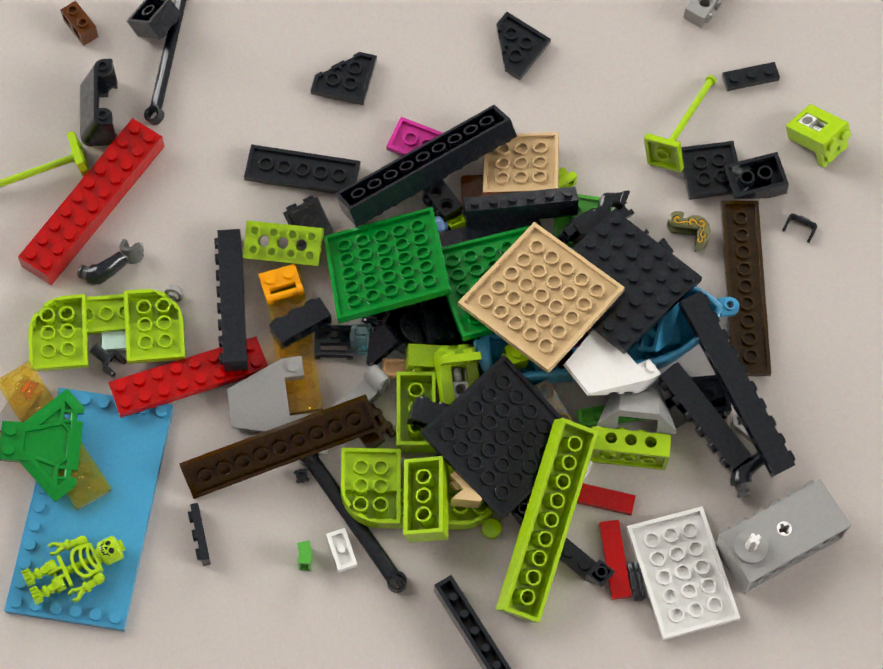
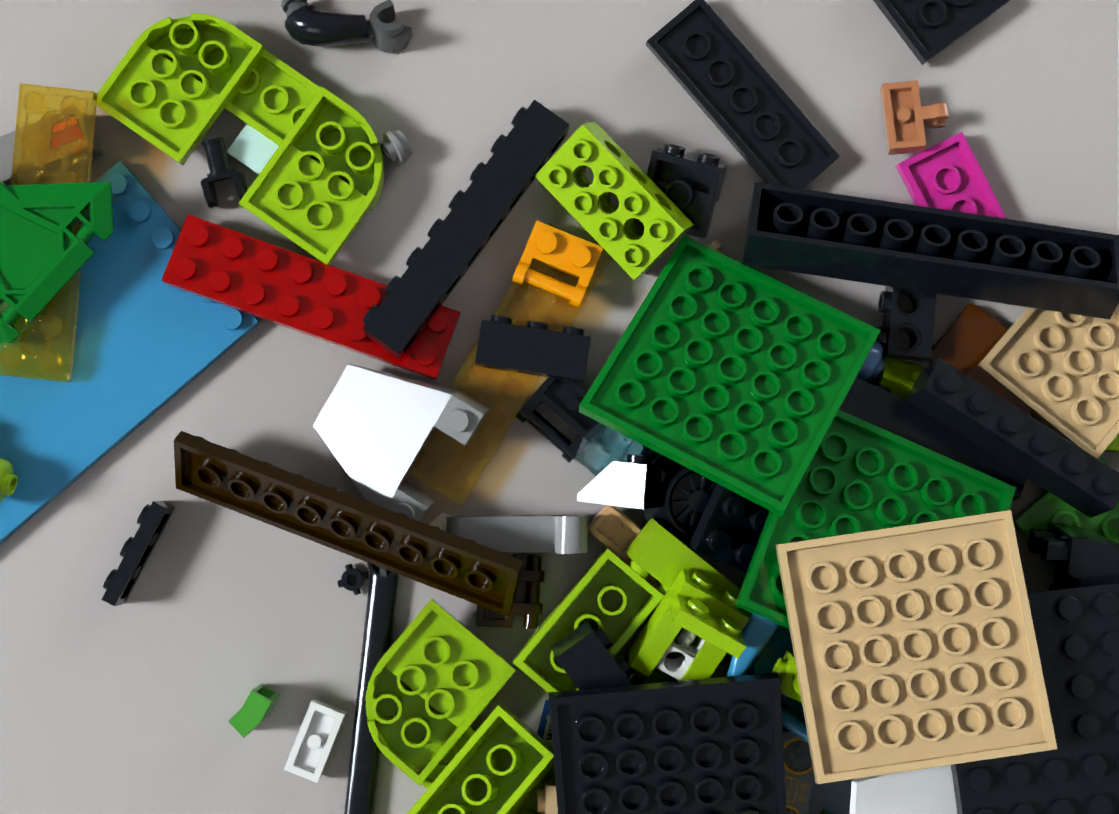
camera: 40 degrees right, 20 degrees up
(375, 128) = (906, 117): none -> nougat plate

